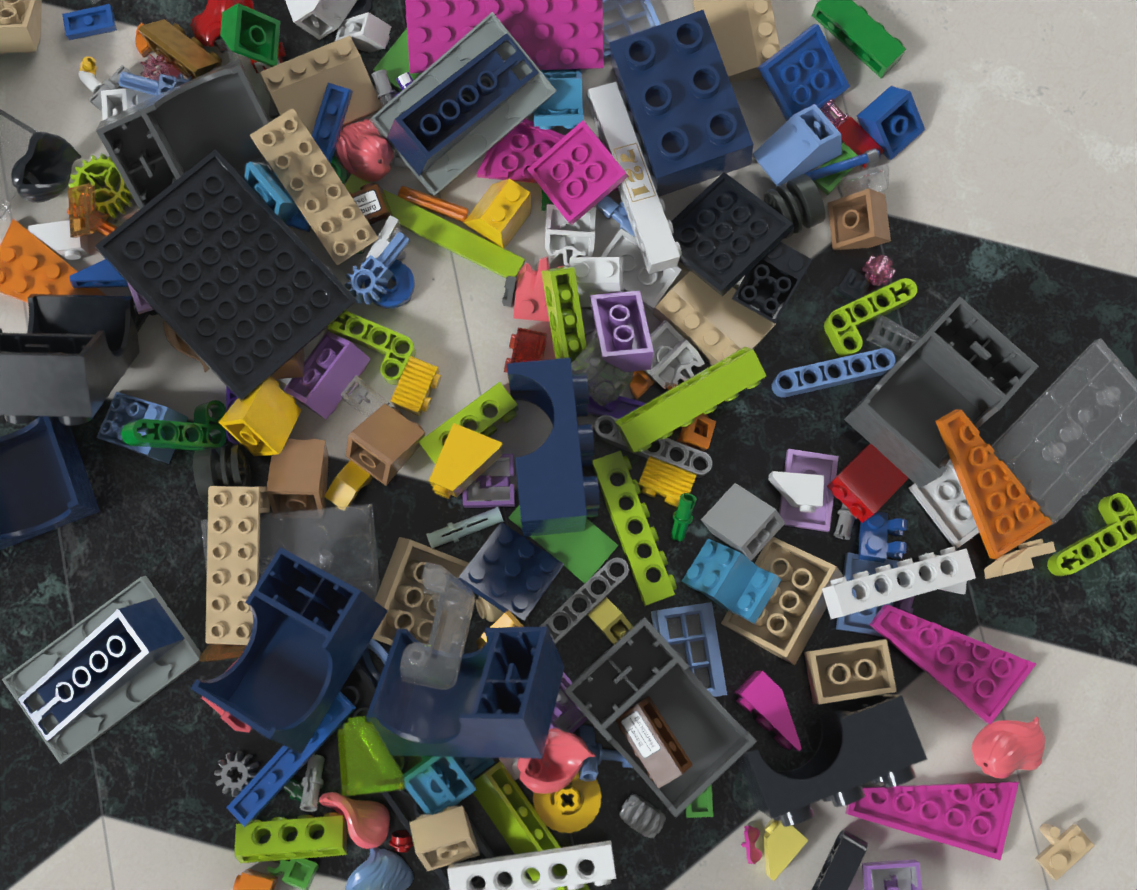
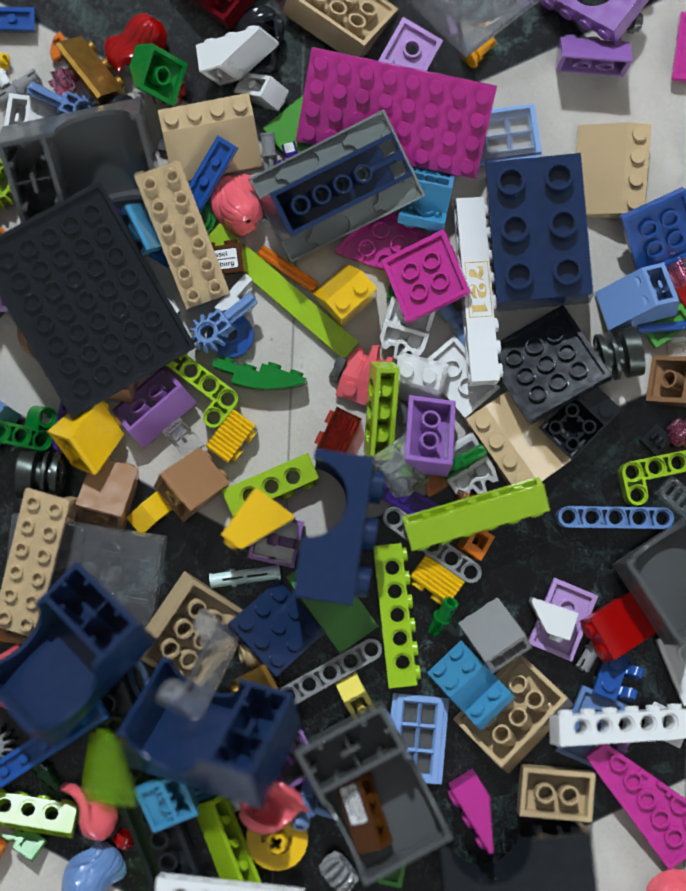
camera: 20 degrees right, 5 degrees up
(312, 783) = (57, 770): light grey pin -> none
(439, 318) = (267, 379): none -> green slope
(443, 838) = (160, 849): tan slope -> none
(666, 348) = (466, 459): none -> green axle

